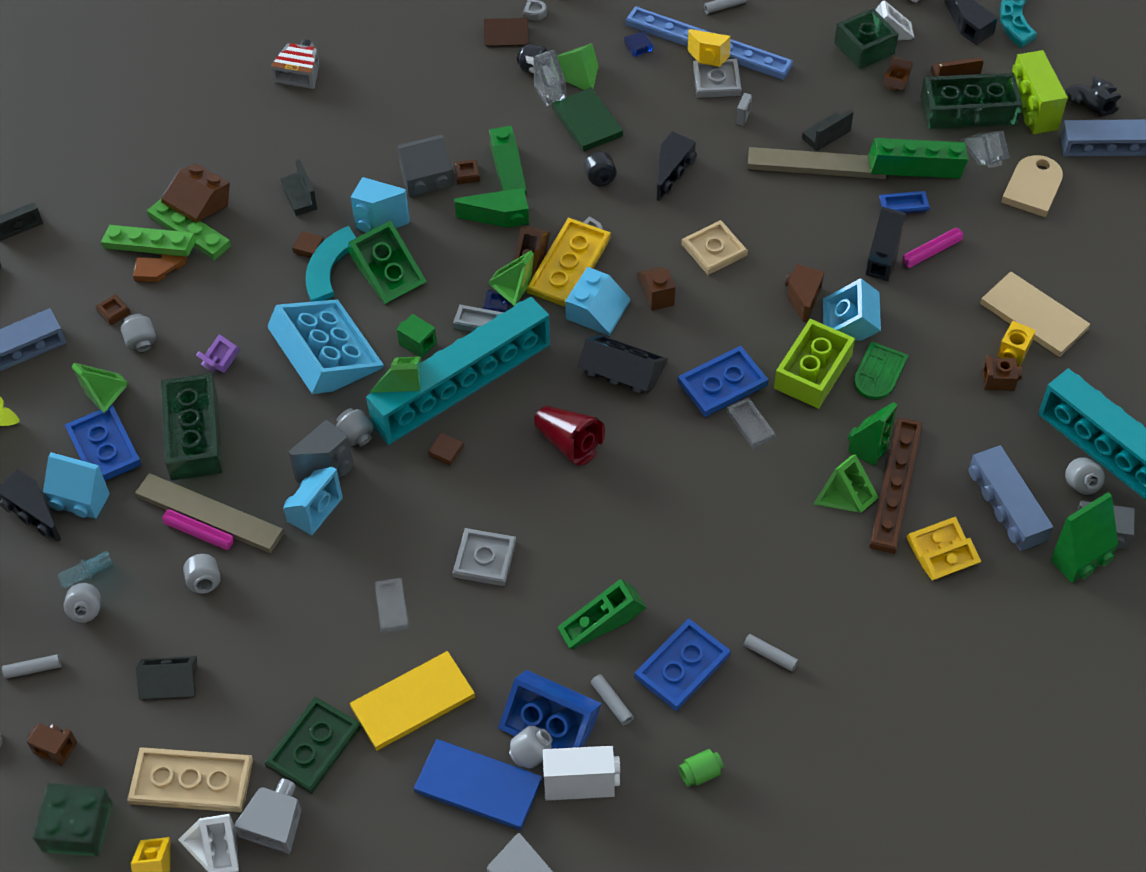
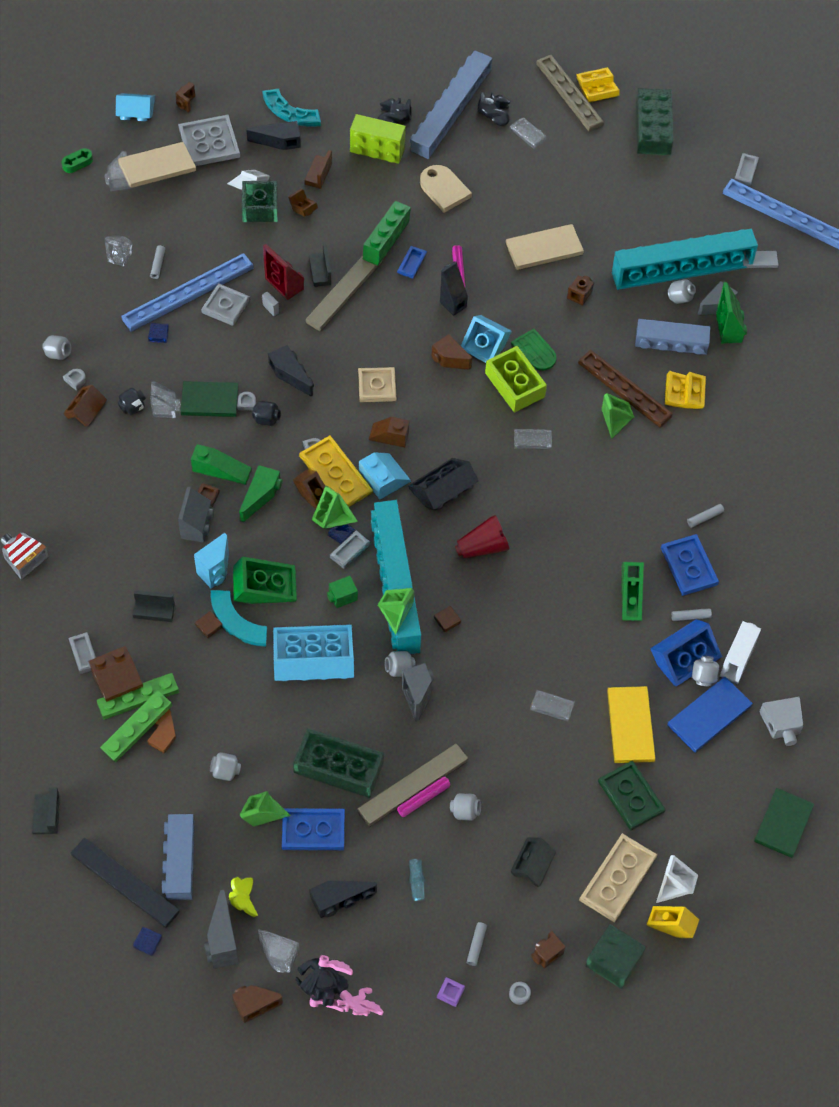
camera: 65 degrees left, 5 degrees up
(74, 486) = (347, 857): medium azure slope -> none
(82, 602) = (448, 889): light grey head -> none
(112, 309) = (185, 777): reddish brown tile -> none
(219, 355) = (279, 721): medium lavender bracket -> none
(220, 160) = (82, 651): none -> light grey tile
(271, 817) = (675, 836): light grey torso -> none
(314, 500) = (447, 712): medium azure slope -> none
(484, 557) = (546, 635): light grey tile -> none
(579, 66) = (155, 373): bright green slope -> none
(608, 146) = (246, 401): none -> light grey tile
(701, 768) = (765, 590): bright green brick -> none
(708, 47) = (200, 293): yellow slope -> none
(722, 381) = (493, 436): blue plate -> none
(786, 93) = (281, 274): none -> dark red slope
(873, 435) = (593, 376): green slope -> none
(971, 100) = (356, 177): clear green brick -> none
(987, 148) = (400, 190): clear slope -> none
(1016, 342) = (563, 268): yellow brick -> none

